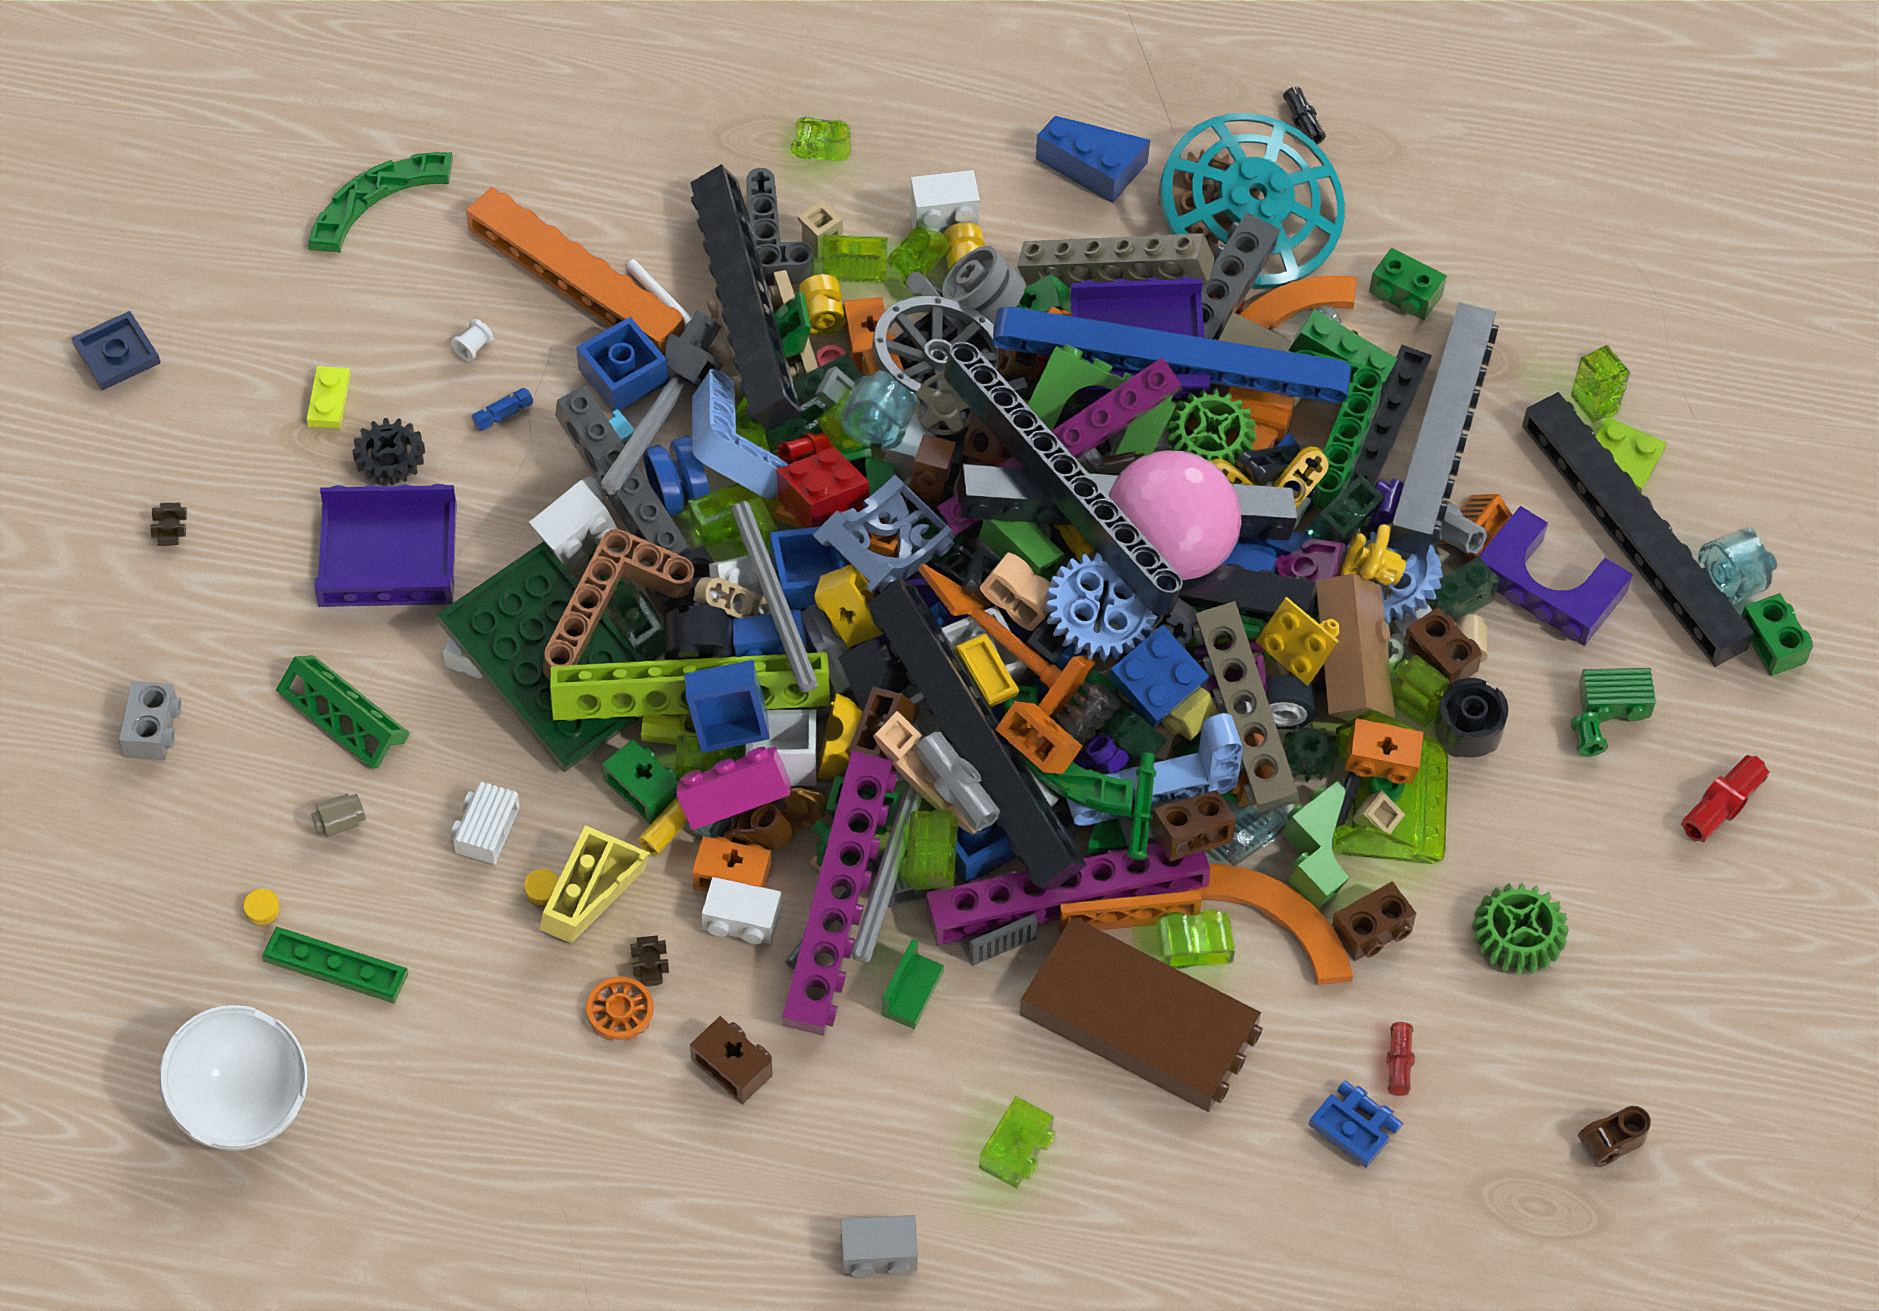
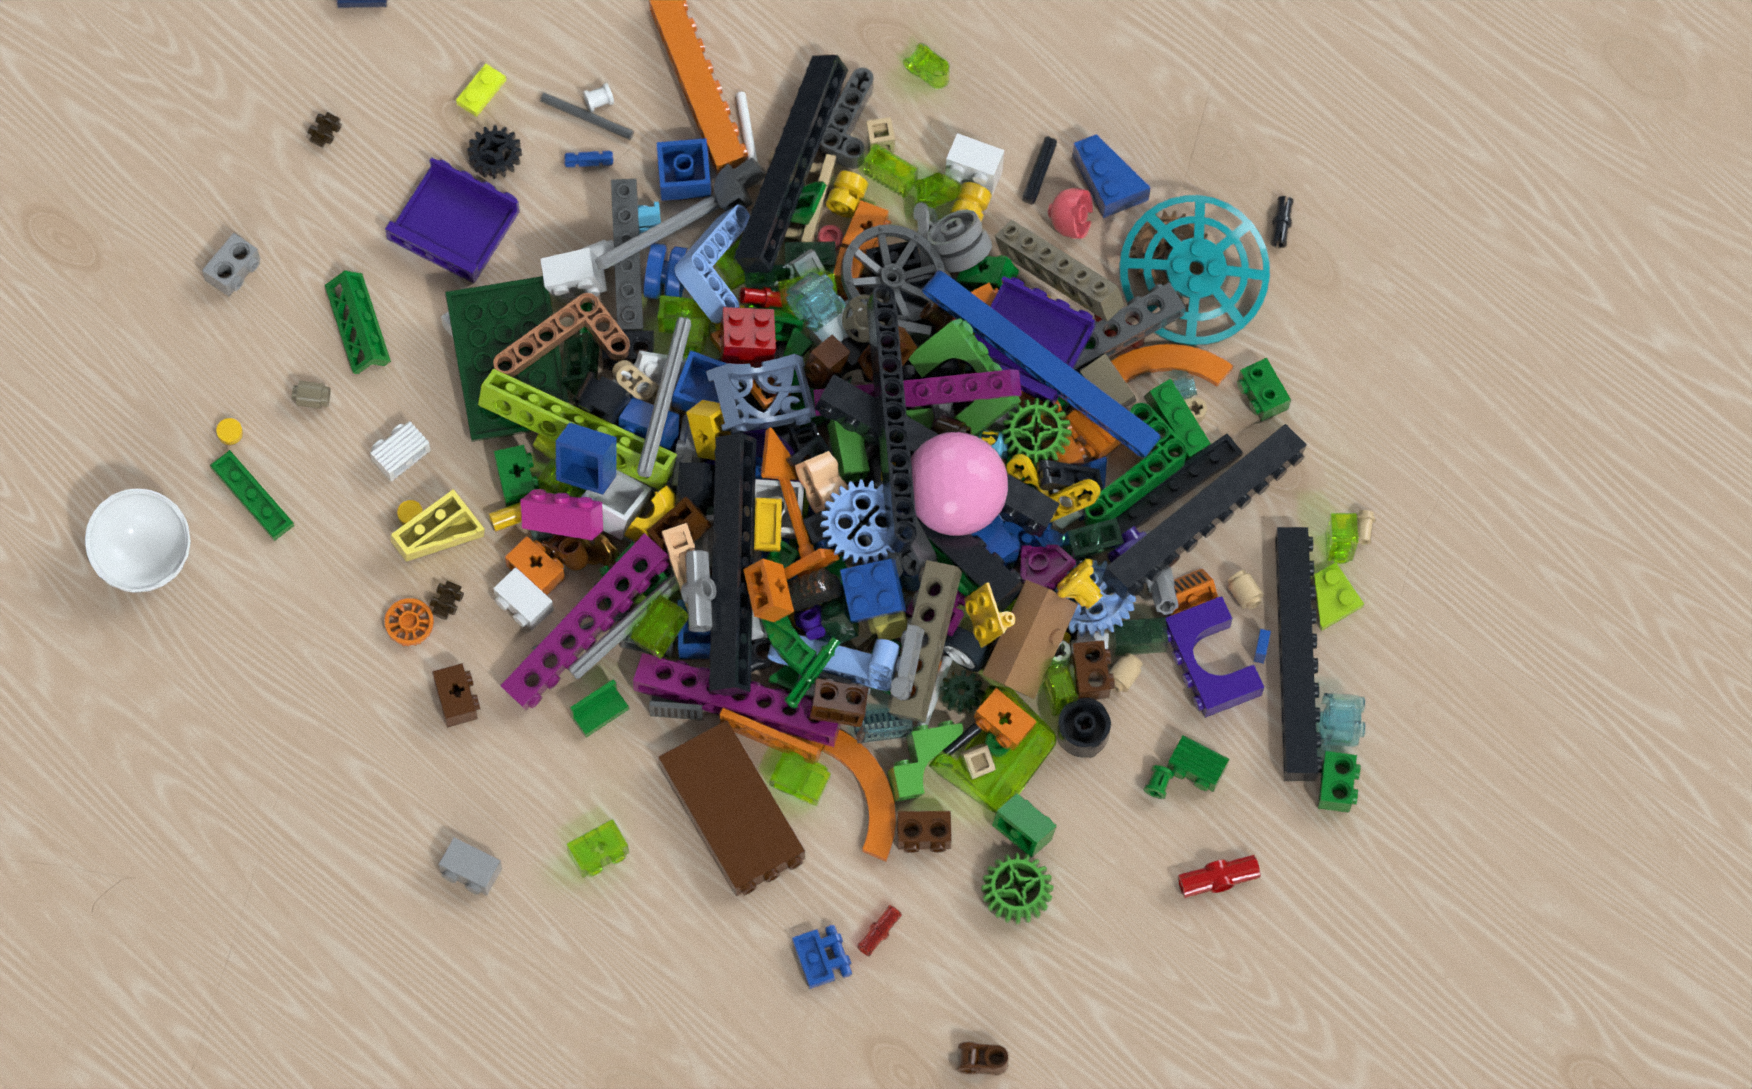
camera: 30 degrees right, 10 degrees up
(470, 367) = (587, 116): none -> dark grey bar
(1013, 186) = (1039, 170): none -> black axle
(1078, 208) = (1070, 212): none -> coral cylinder
(1257, 761) = (907, 663): none -> light grey hinge
(1481, 855) = (1024, 825): none -> green brick
(1535, 491) = (1245, 590): none -> tan brick
(1595, 538) = (1262, 645): none -> blue tile

